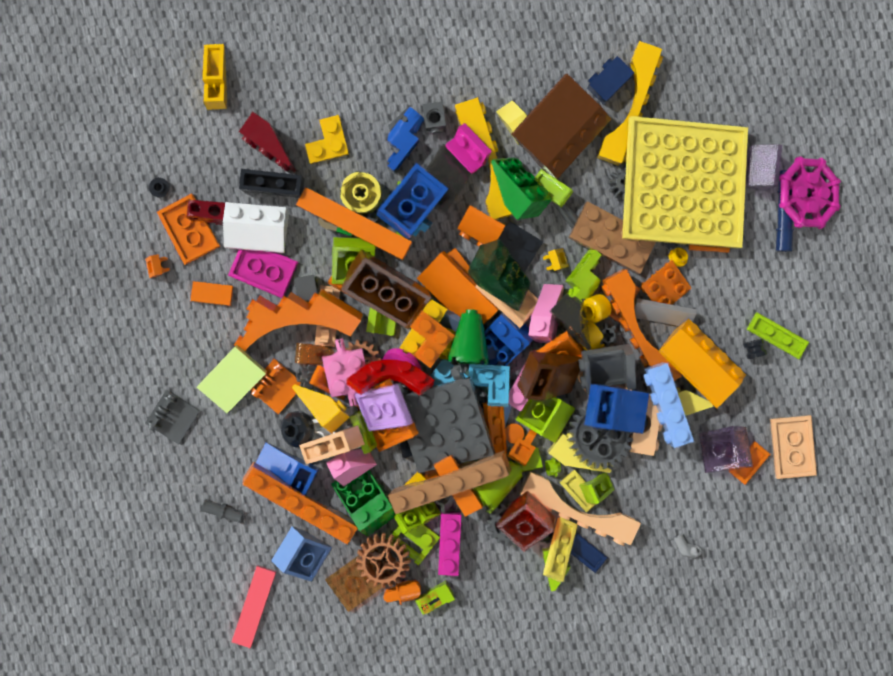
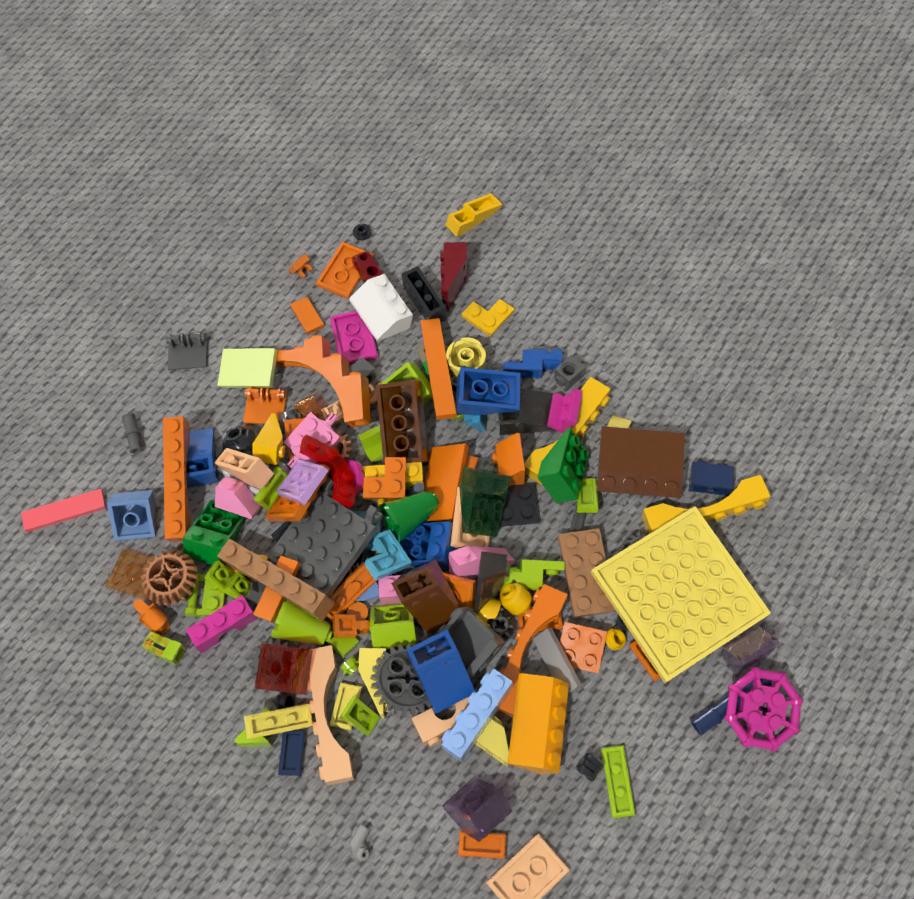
camera: 60 degrees right, 25 degrees down
(557, 259) = (532, 541): yellow tile -> none

